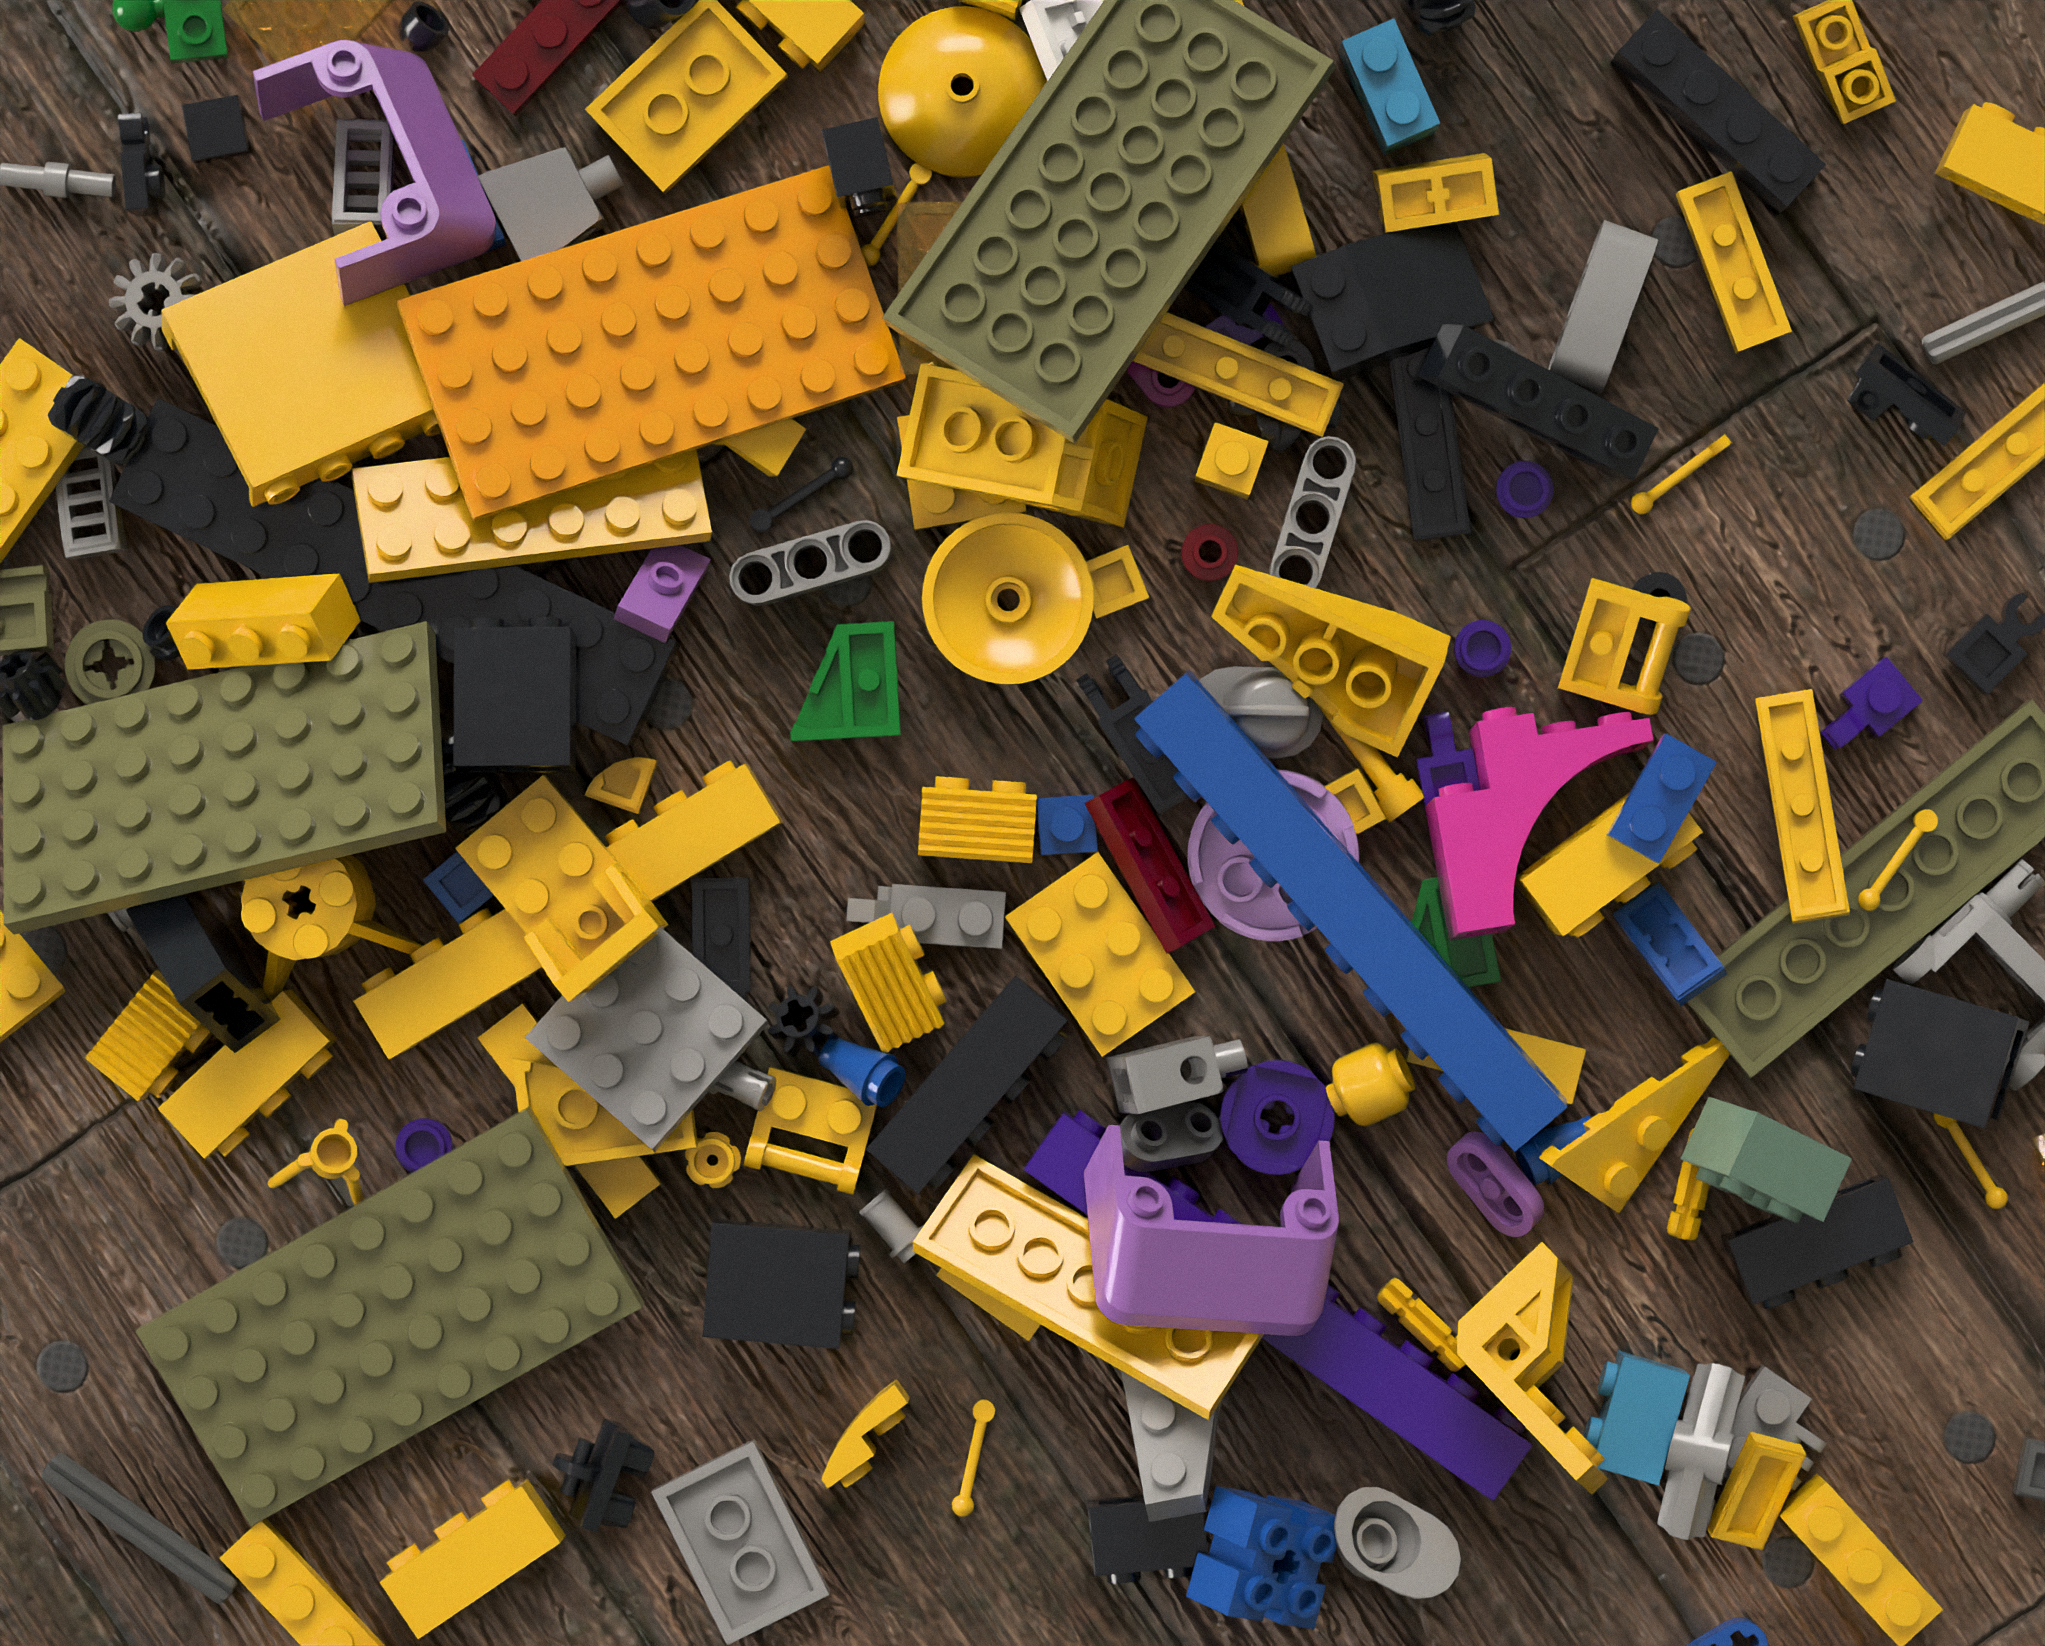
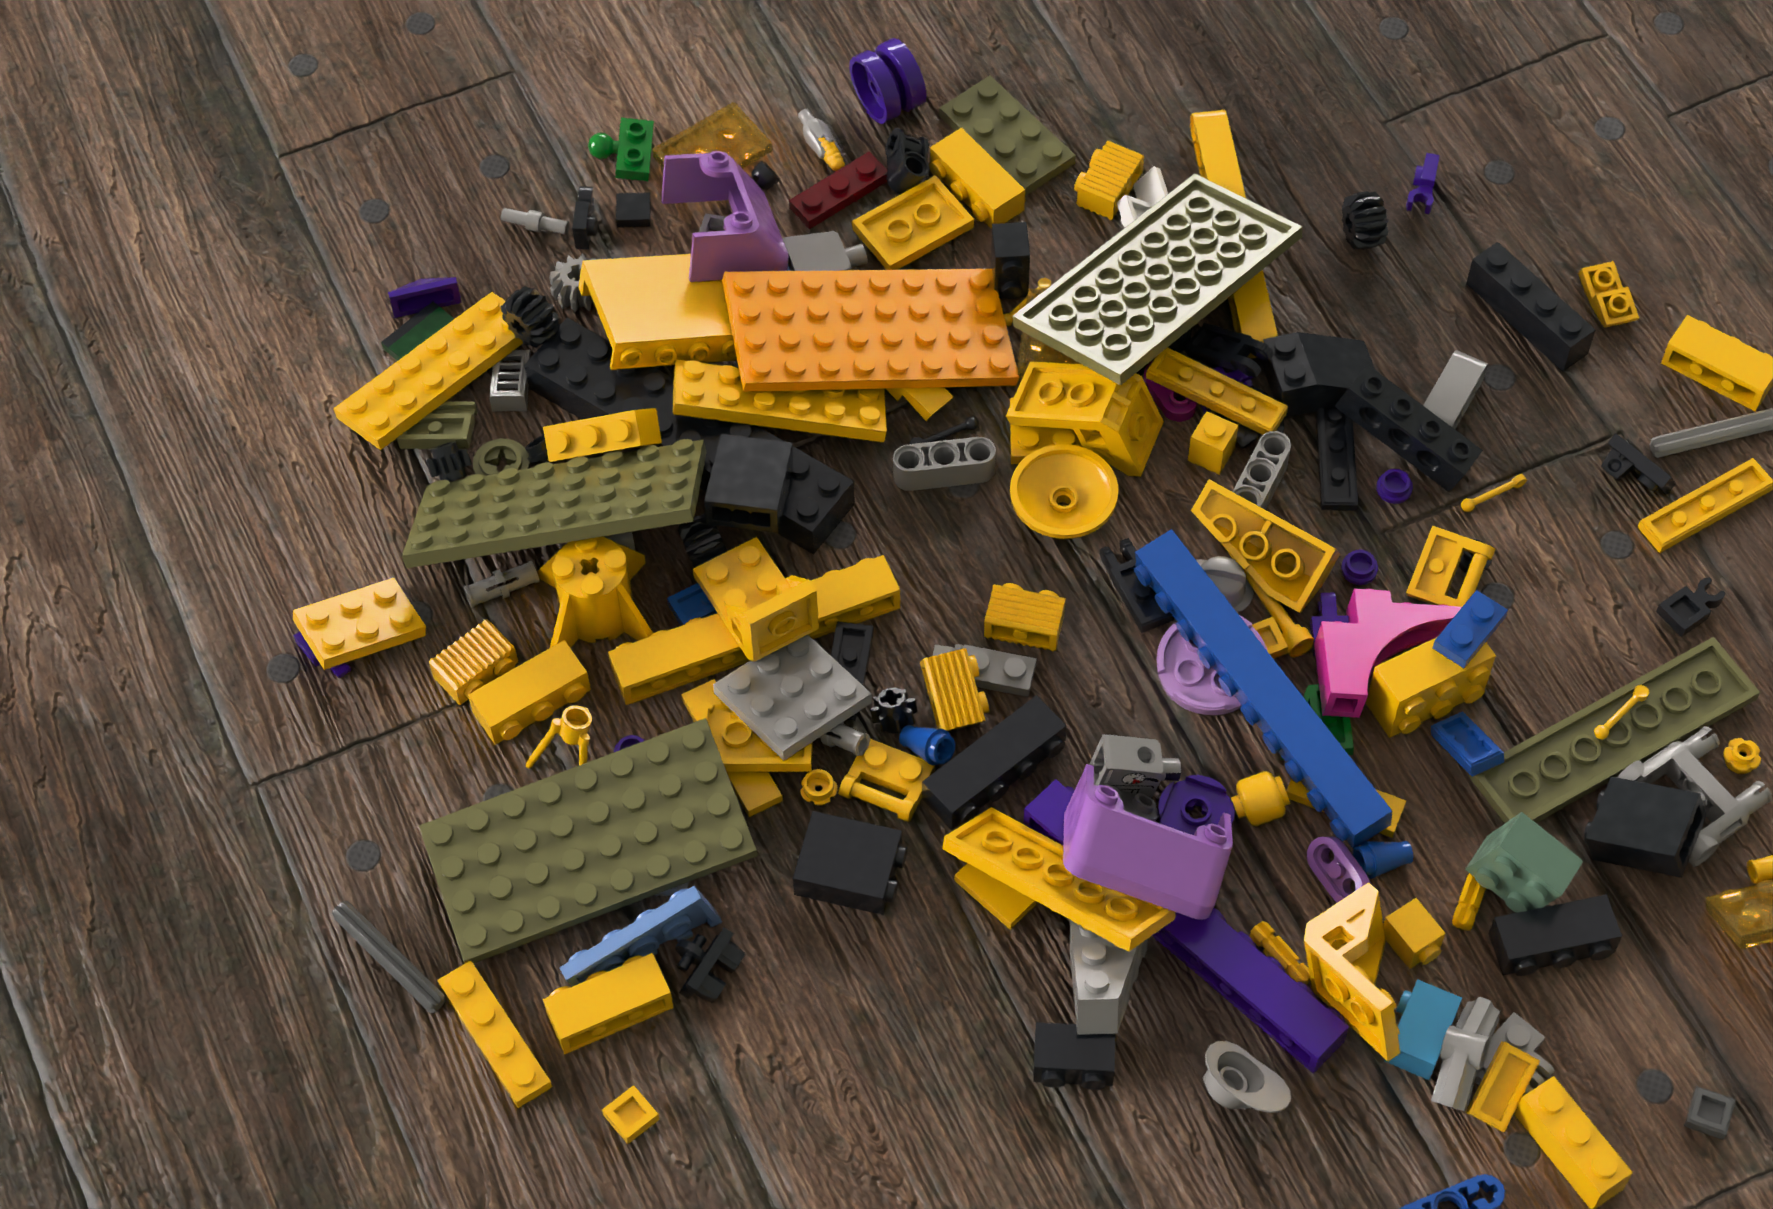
camera: 10 degrees right, 30 degrees down
(205, 968) = (519, 609): black brick -> none
(508, 1450) = (651, 928): none -> medium blue wing
(624, 783) = (806, 567): yellow tile -> none
(661, 590) = (849, 459): medium lavender plate -> none
(740, 1542) = (793, 1022): light grey plate -> none
(854, 687) = (958, 535): green wing -> none
(854, 1448) = (879, 971): yellow slope -> none
(892, 1225) = (930, 842): light grey pin -> none
(930, 121) = (1055, 244): yellow dish -> none
(983, 1412) = (972, 969): yellow hinge -> none
(1066, 825) = (1081, 630): blue plate -> none
(1100, 954) = (1090, 701): yellow plate -> none
(1115, 582) = (1132, 500): yellow plate -> none
(1150, 865) = (1131, 654): dark red plate -> none
(1200, 568) = (1183, 497): dark red plate -> none
(1264, 1558) = (1154, 1070): blue brick -> none
(1388, 86) = (1331, 269): dark azure brick -> none
(1436, 192) = (1356, 319): yellow hinge -> none
(1613, 1270) = (1413, 934): none -> yellow brick
(1633, 1133) = (1426, 857): yellow wing -> none
(1733, 262) = (1534, 385): yellow plate -> none
(1802, 806) = (1560, 678): yellow tile -> none
(1875, 701) = (1610, 629): dark purple plate -> none
(1995, 1196) = (1648, 878): yellow hinge -> none

